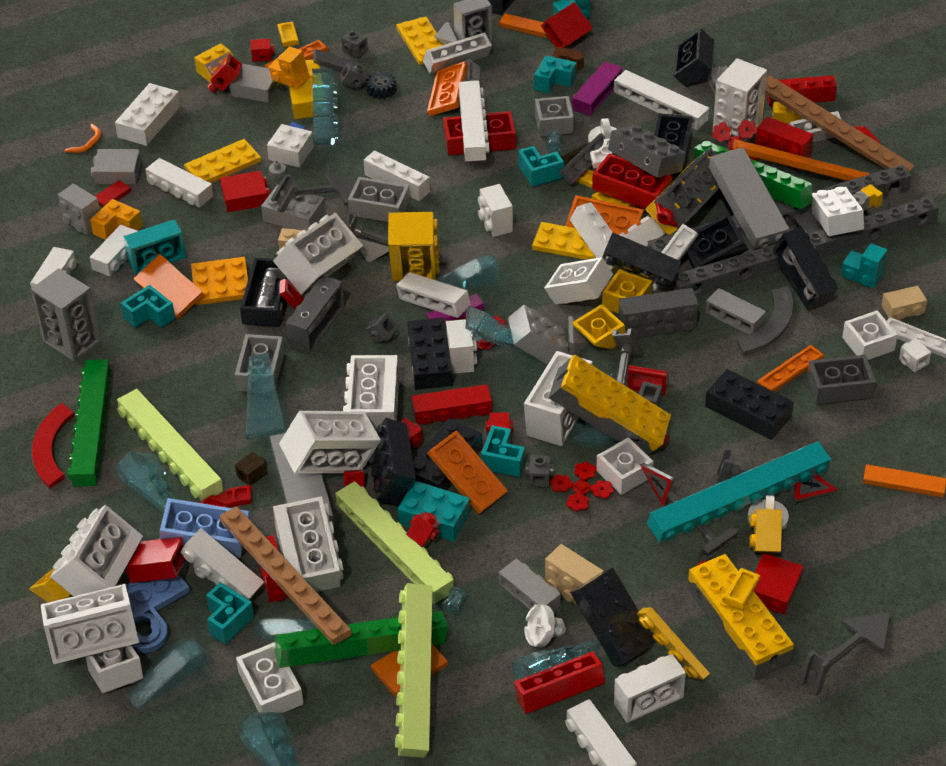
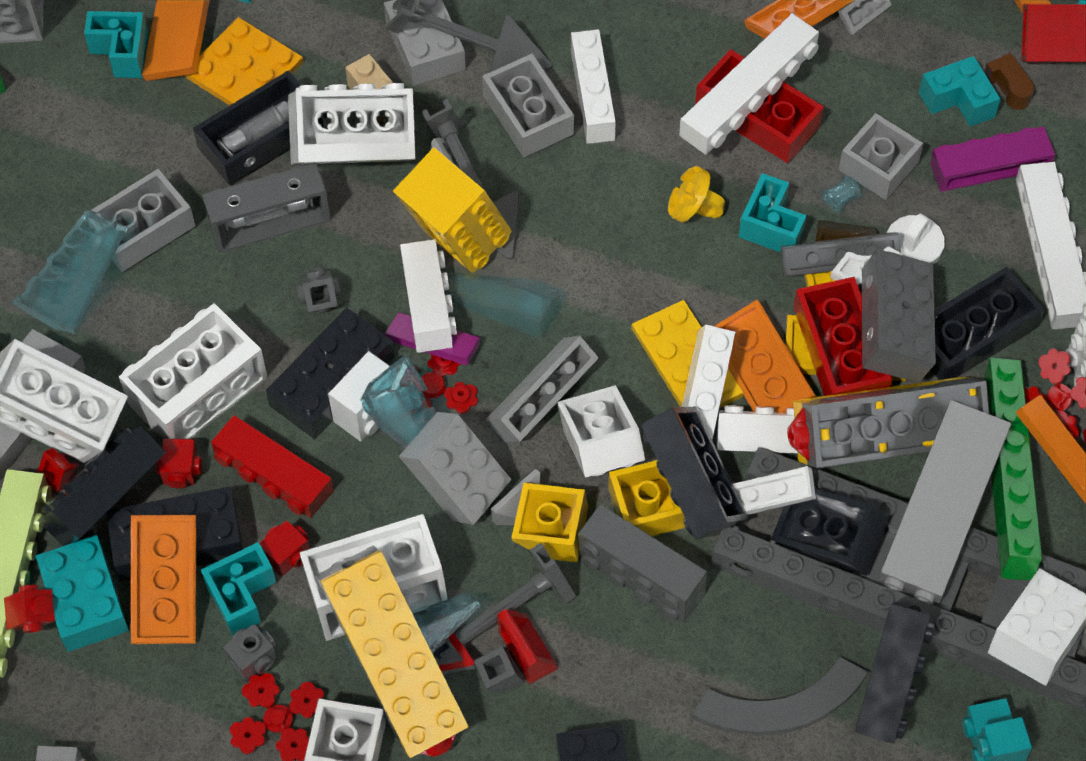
camera: 45 degrees right, 15 degrees up
(290, 294) = (270, 153): red tile -> none
(495, 175) = (695, 197): none -> yellow tile
(495, 210) = (636, 237): white brick -> none
(530, 285) = (541, 389): none -> light grey brick
(735, 311) = (752, 648): light grey brick -> none

